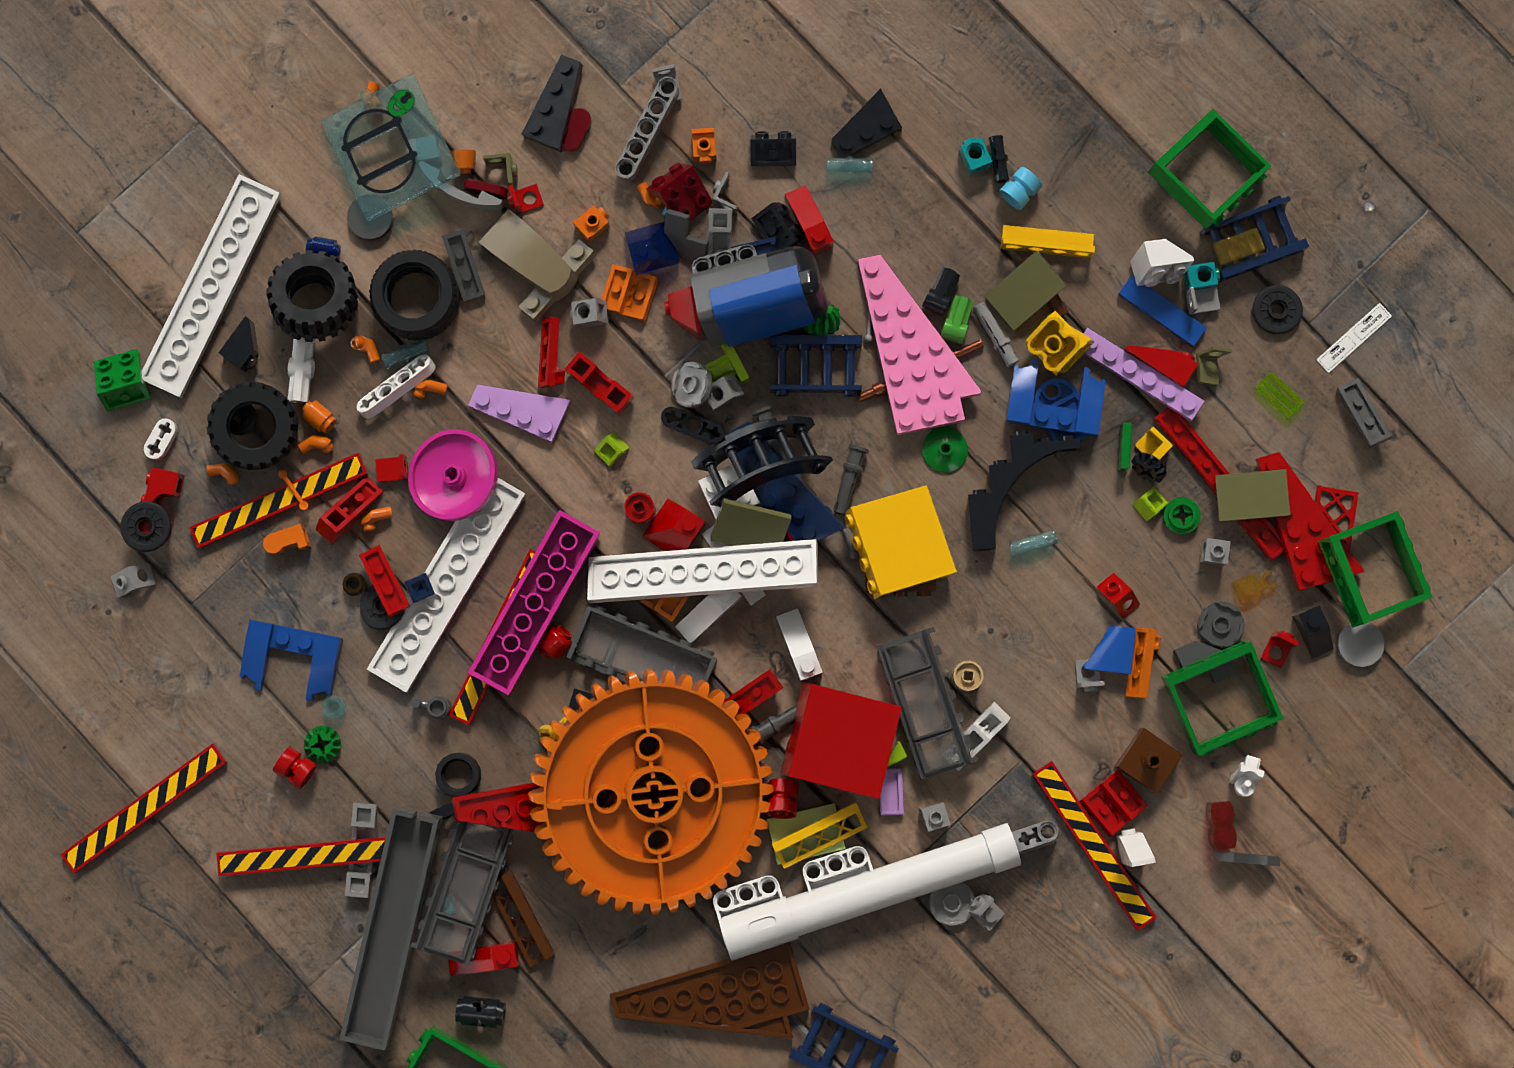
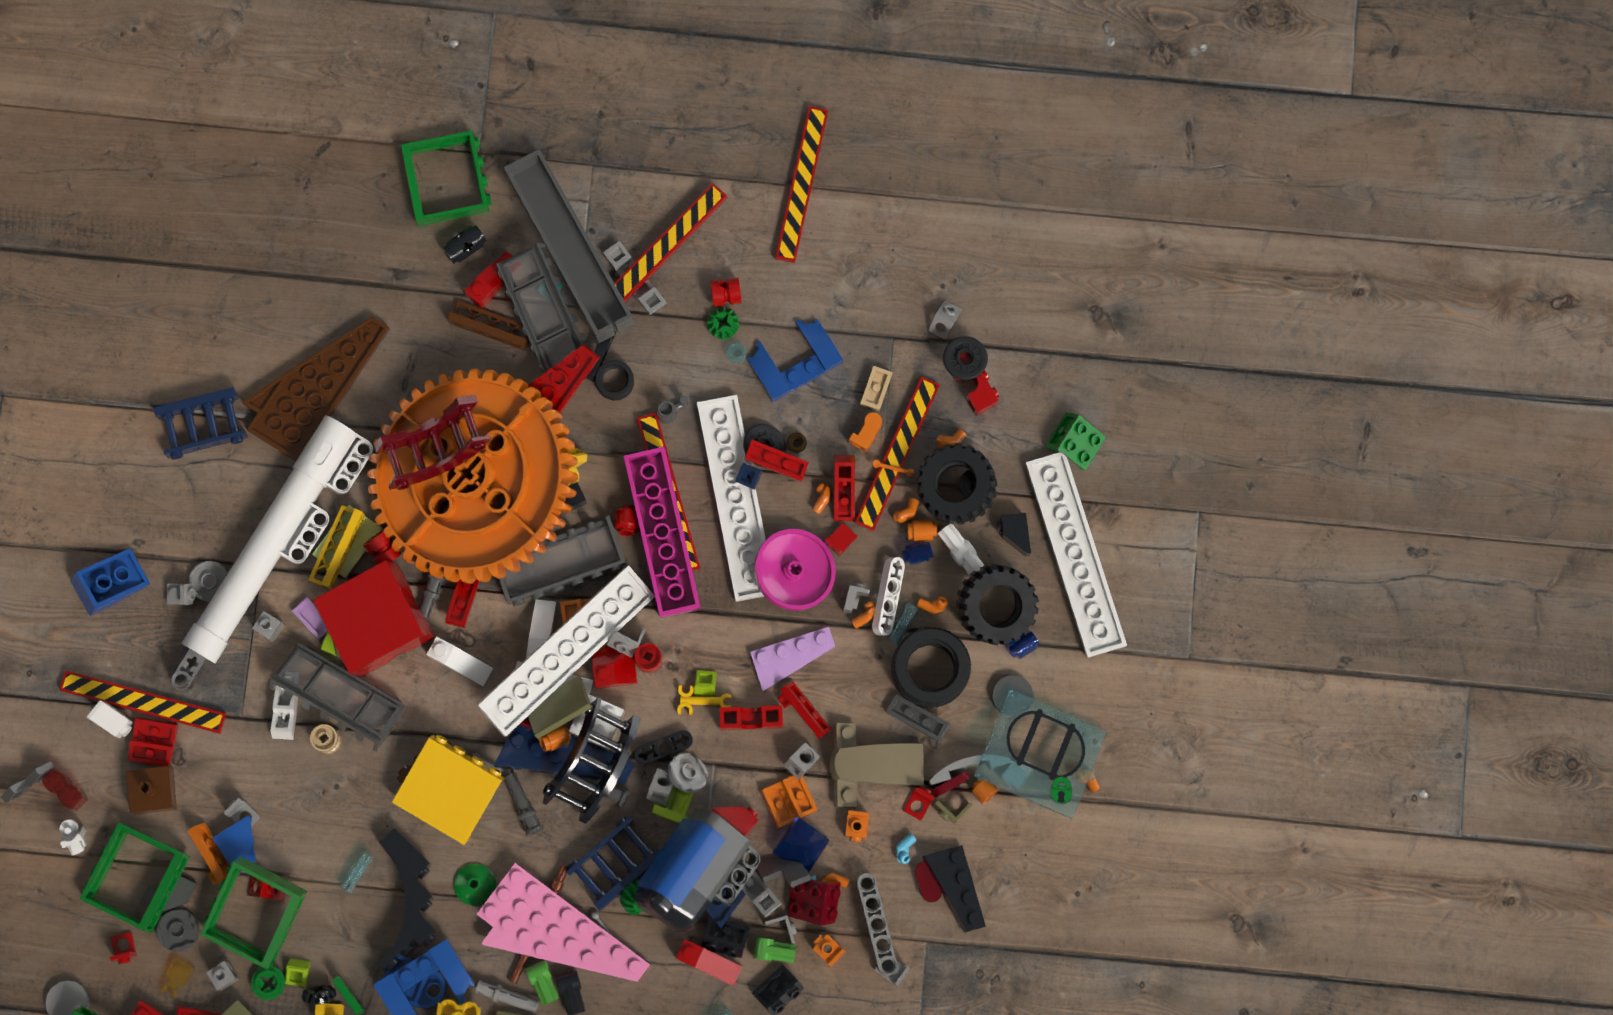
camera: 130 degrees right, 5 degrees down
(155, 437) = (1017, 424): white beam -> none
(245, 571) = (876, 388): none -> tan plate
(339, 400) = (917, 553): none -> clear blue brick
(429, 410) = (851, 599): none -> light grey bracket
(572, 173) = (902, 849): none -> medium azure arm
(638, 448) = (687, 700): none -> yellow bar
(649, 534) = (624, 644): none -> light grey bracket
(650, 859) = (432, 428): none -> dark red fence
(751, 187) = (769, 950): none -> bright green piece
(776, 502) = (555, 739): none -> orange brick
(1037, 976) = (109, 581): none -> blue slope
(1182, 568) = (236, 945): none -> green window
(1314, 631) = (107, 982): black slope -> none

